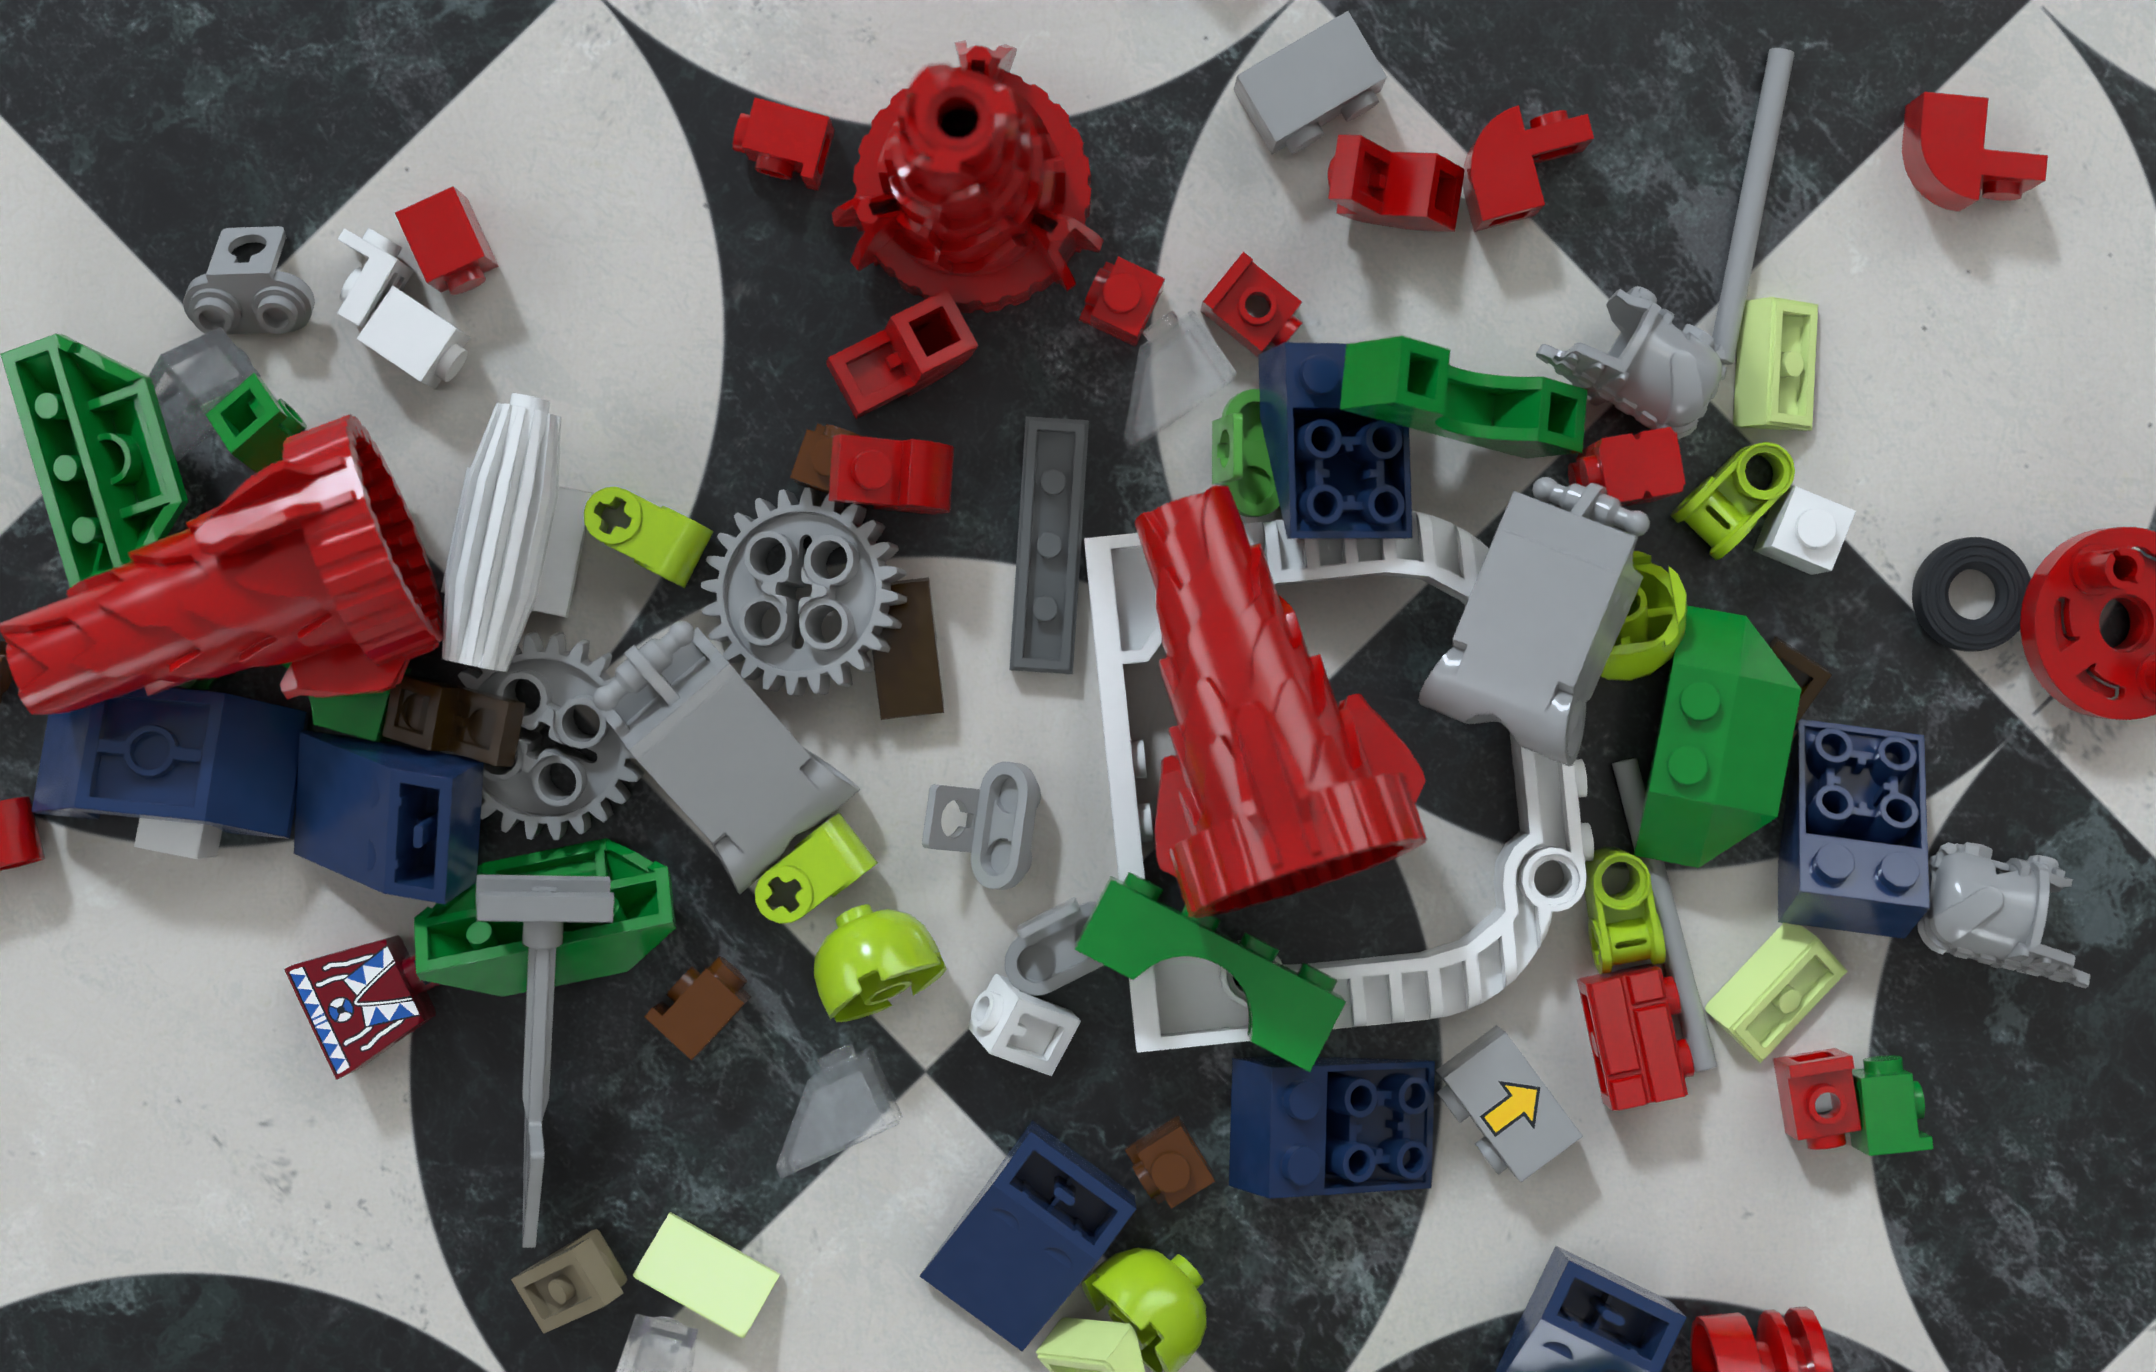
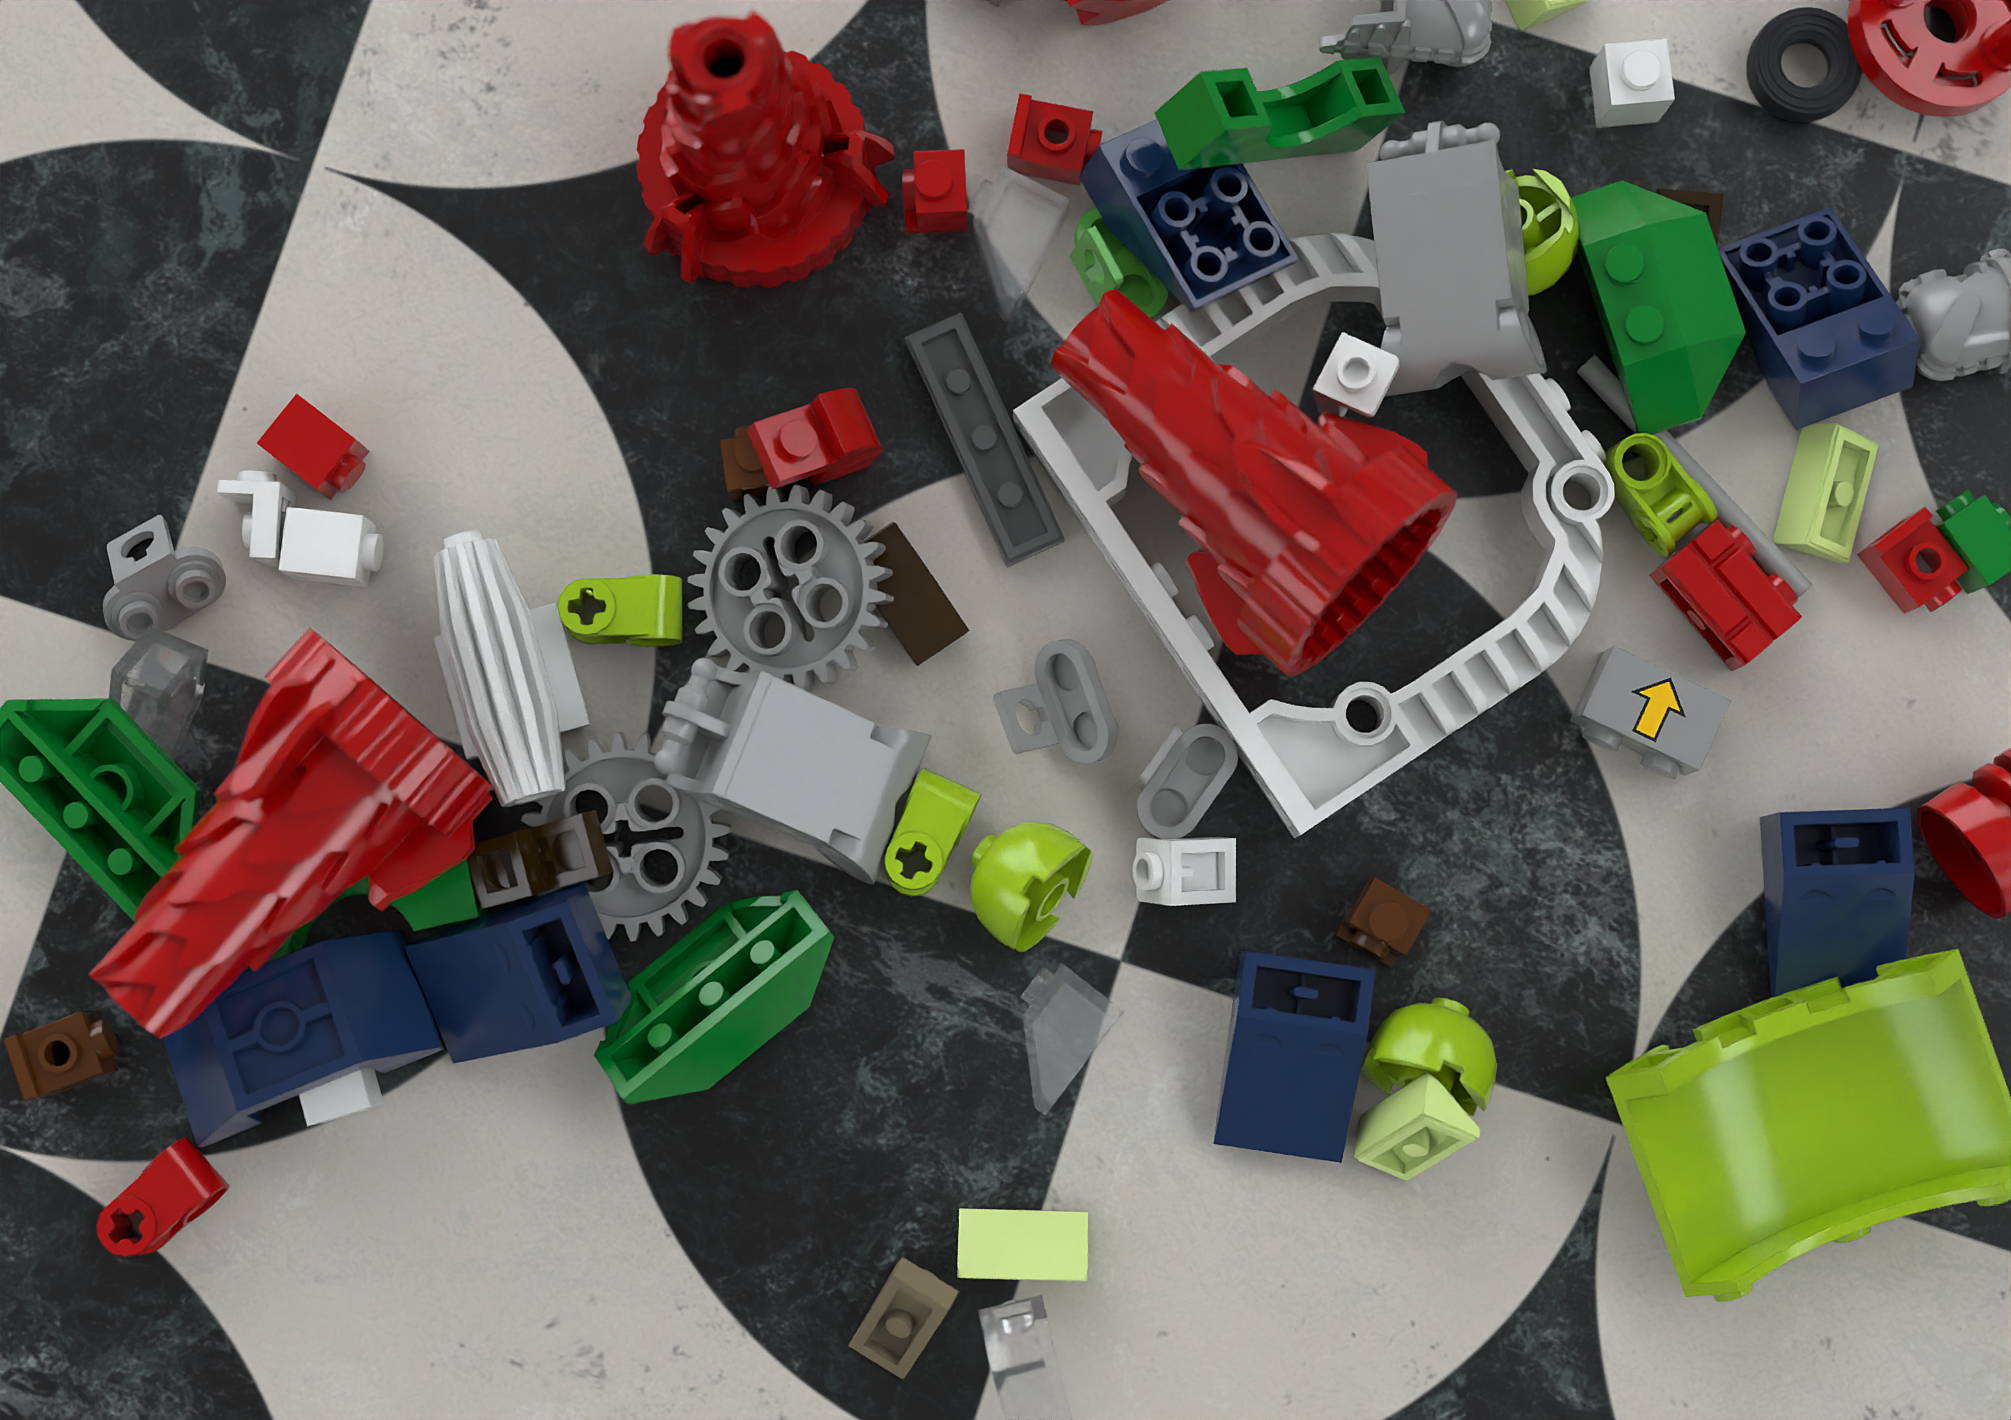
camera: 30 degrees left, 5 degrees down
(255, 423) = (224, 690): green brick -> none
(361, 1001) = (585, 1158): torso -> none
(543, 907) = (708, 975): light grey piece -> none
(701, 1006) = (891, 1002): reddish brown brick -> none
(785, 141) = (567, 208): red brick -> none
(905, 356) = (775, 334): red brick -> none
(1286, 1008) = (1410, 721): green arch -> none
(1331, 1128) = (1504, 814): dark blue slope -> none
(1399, 678) = (1354, 378): none -> white bracket
(1632, 467) = (1462, 92): red brick -> none
(1727, 505) = (1555, 94): lime piece -> none

